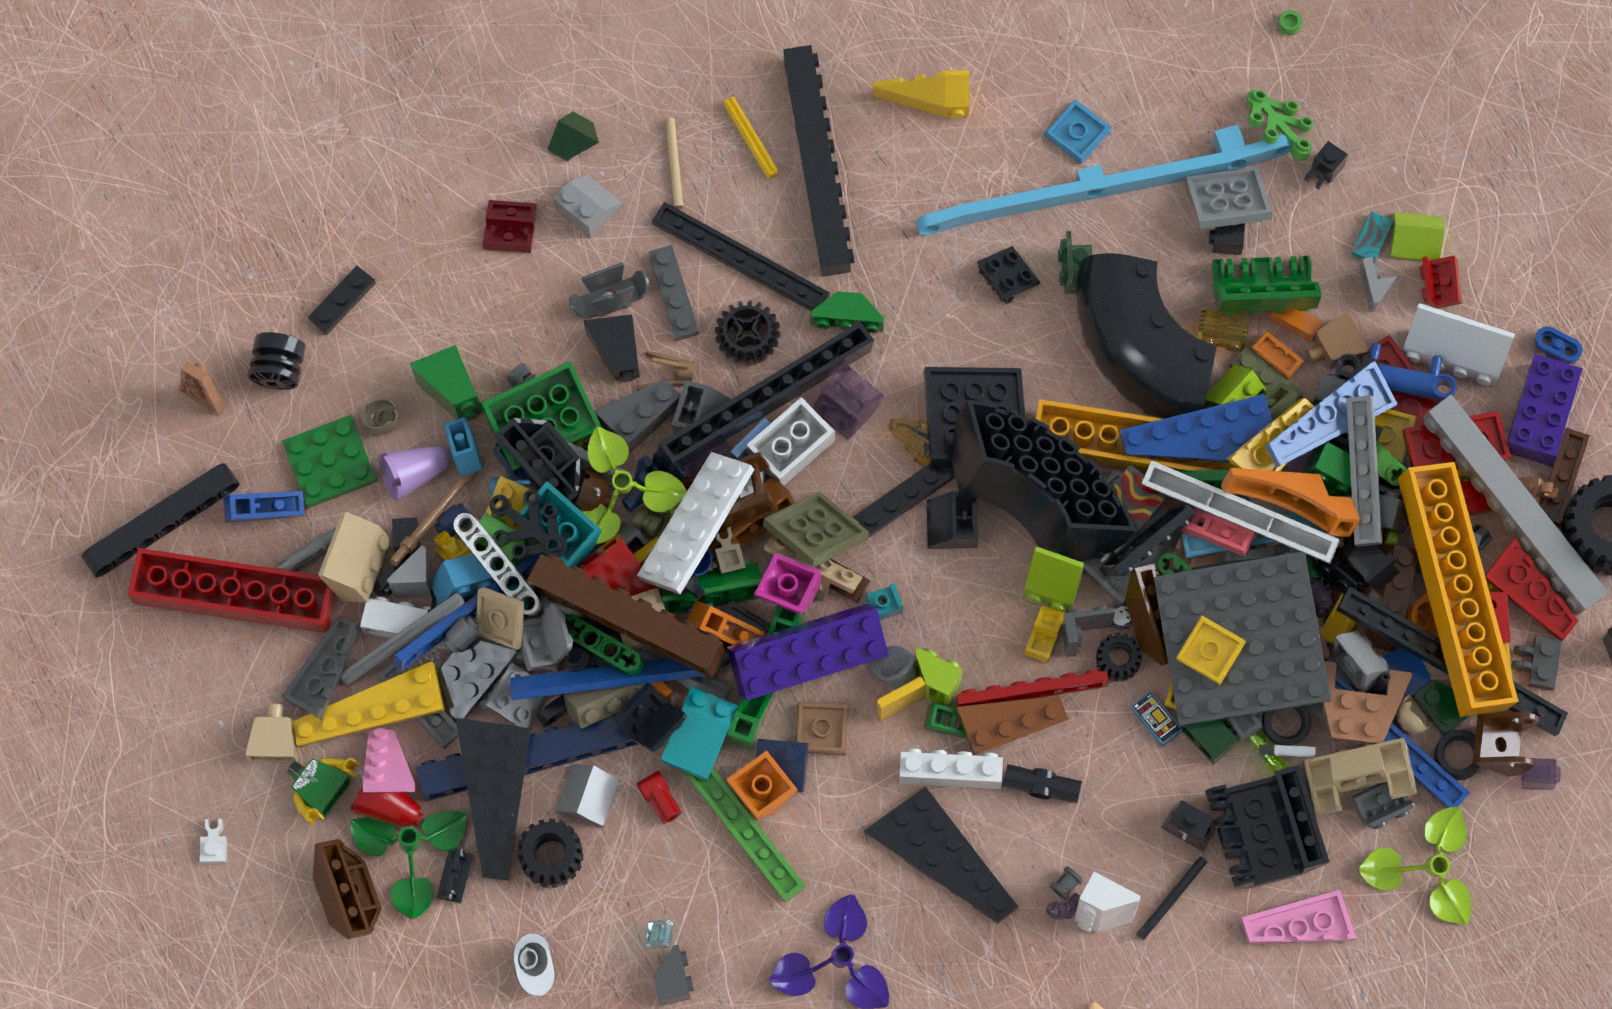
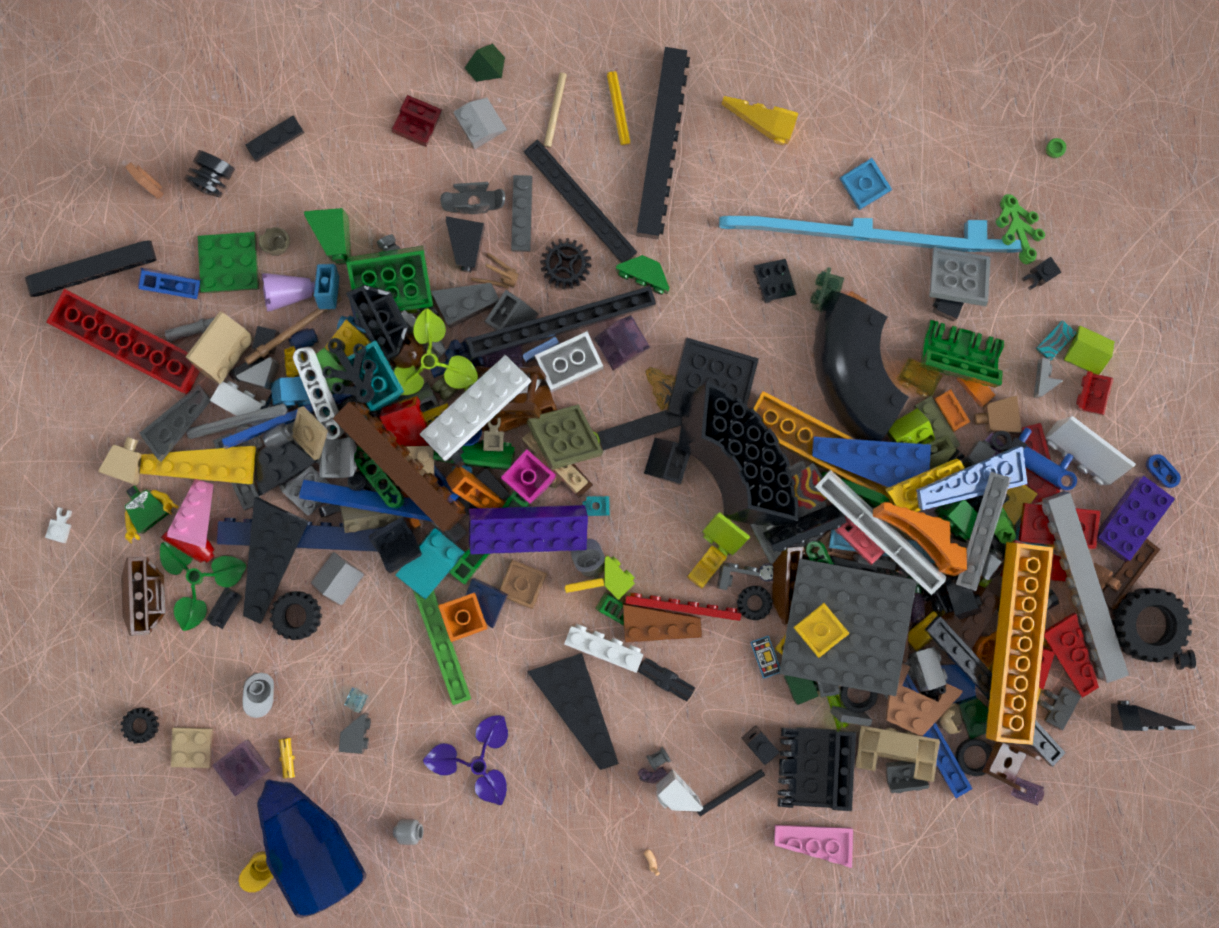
camera: 15 degrees right, 15 degrees up
(657, 793) = (387, 592): red piece -> none
(1452, 899) = (931, 859): lime plant -> none

